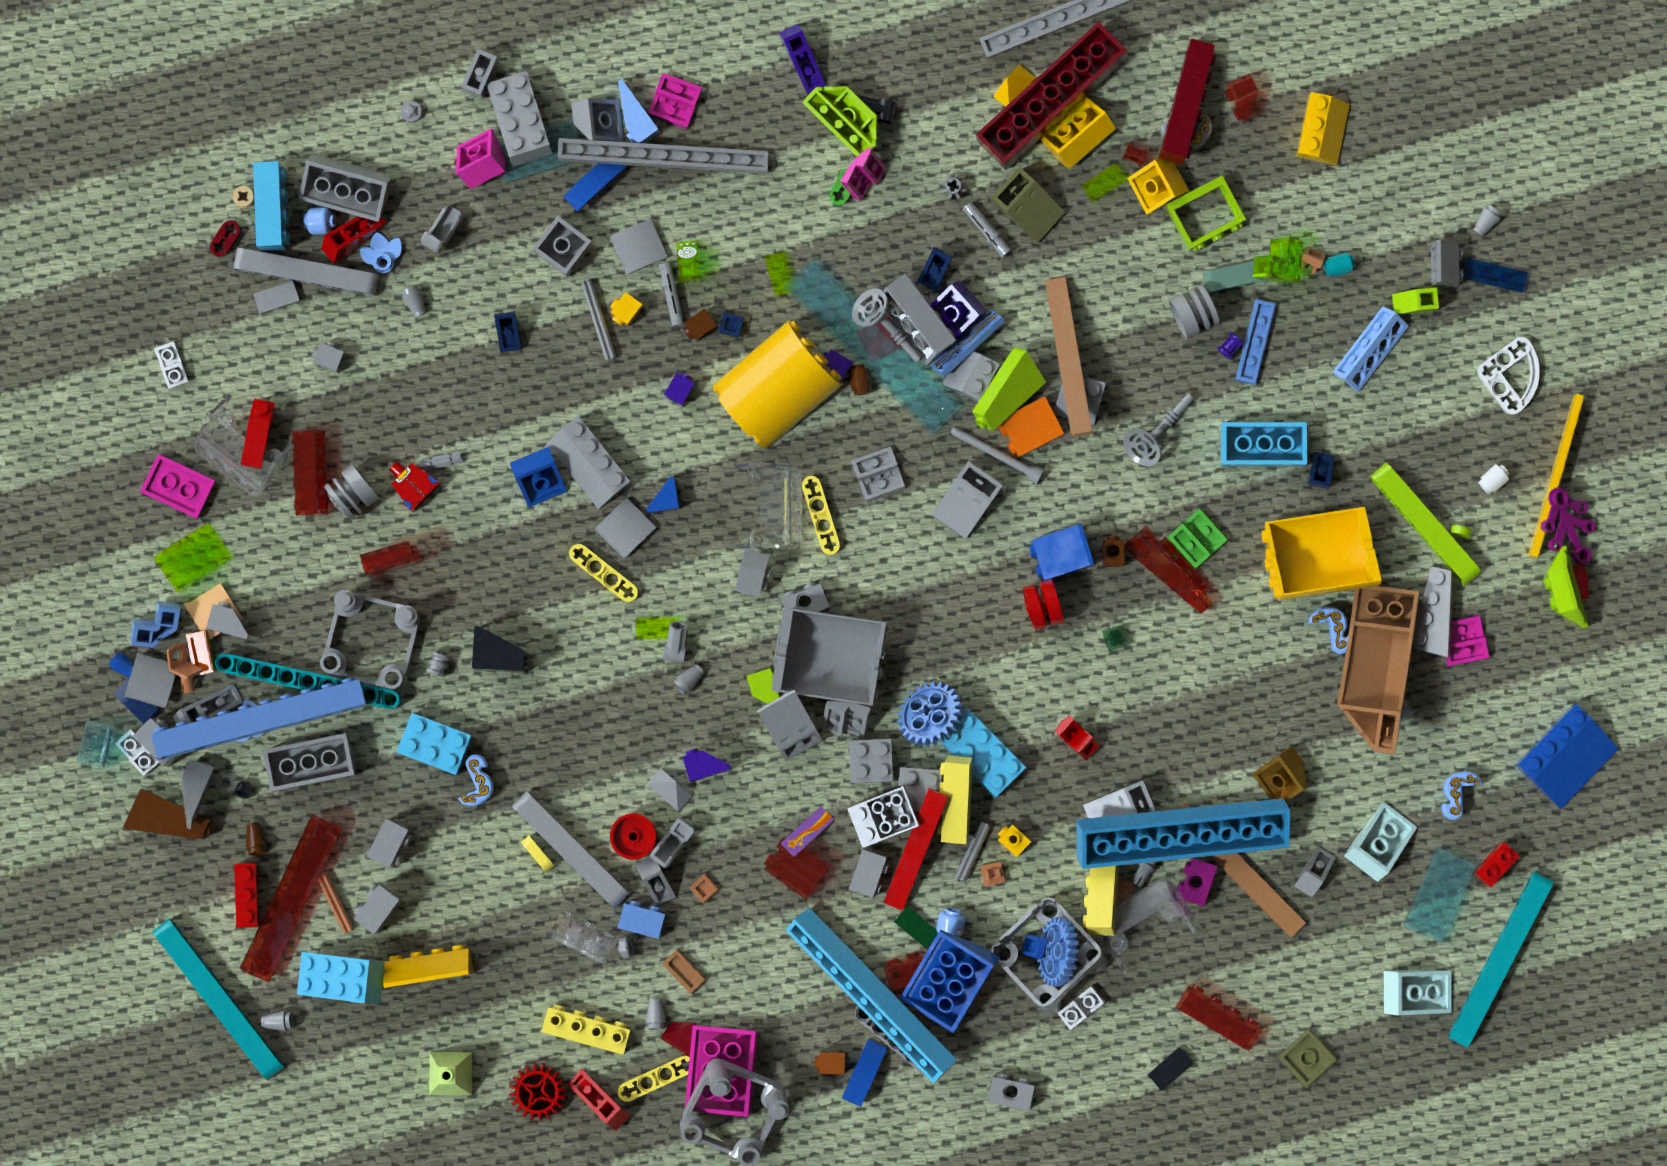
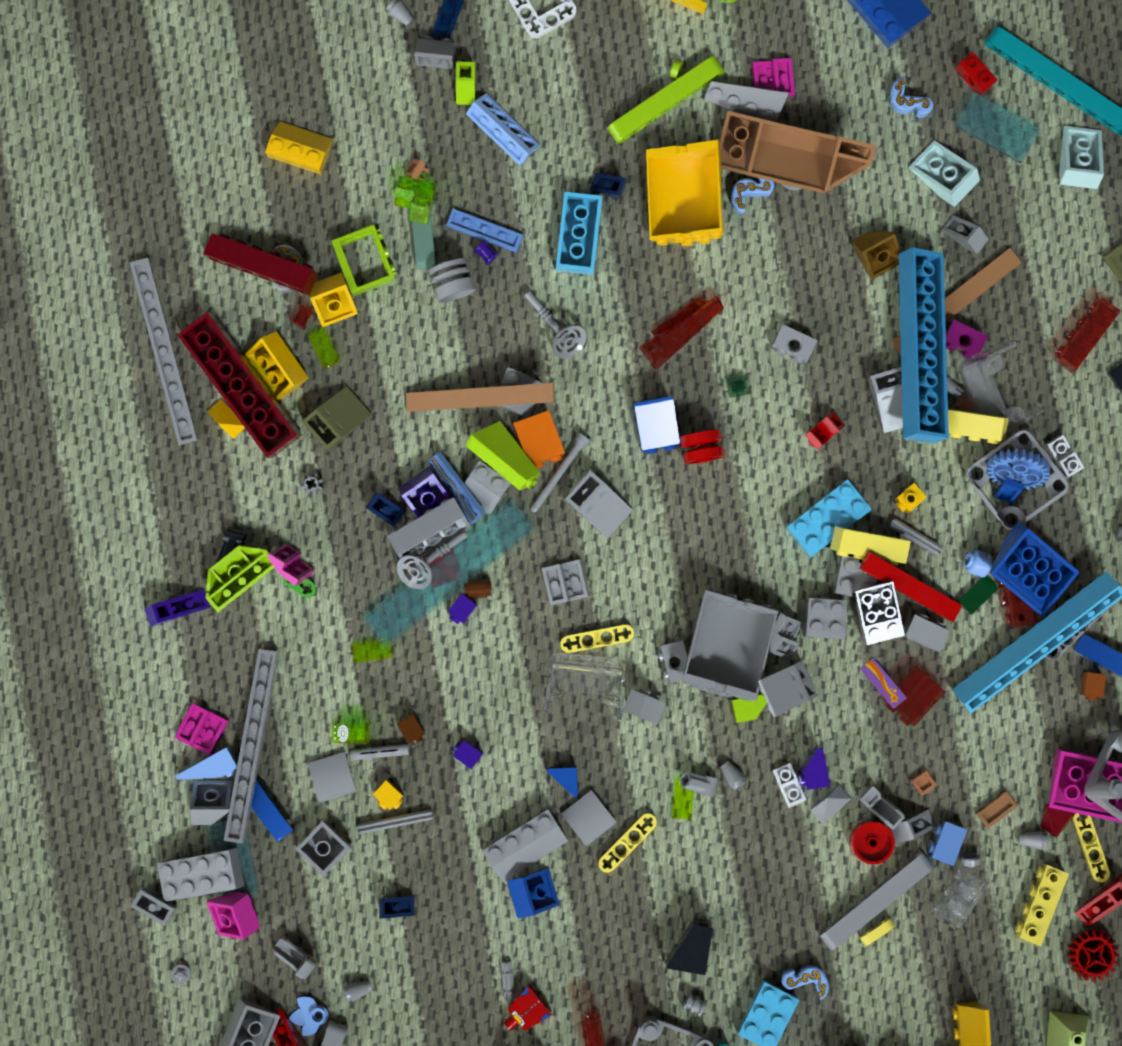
camera: 85 degrees left, 0 degrees up
(684, 741) = (789, 785): none -> white slope
(731, 325) = (414, 700): dark blue plate -> none
(776, 385) = (474, 665): yellow cylinder -> none
(935, 717) = (790, 559): medium blue gear -> none
(992, 874) = (937, 521): nougat tile -> none
(993, 237) = (354, 458): light grey pin -> none
(1108, 561) = (666, 373): reddish brown brick -> none
(1177, 685) = (805, 343): none -> light grey brick
(1197, 538) = (655, 302): bright green slope -> none
(1243, 95) = (261, 213): clear red slope -> none
(1339, 265) = (424, 147): teal brick -> none
(1494, 479) = (632, 34): white brick -> none

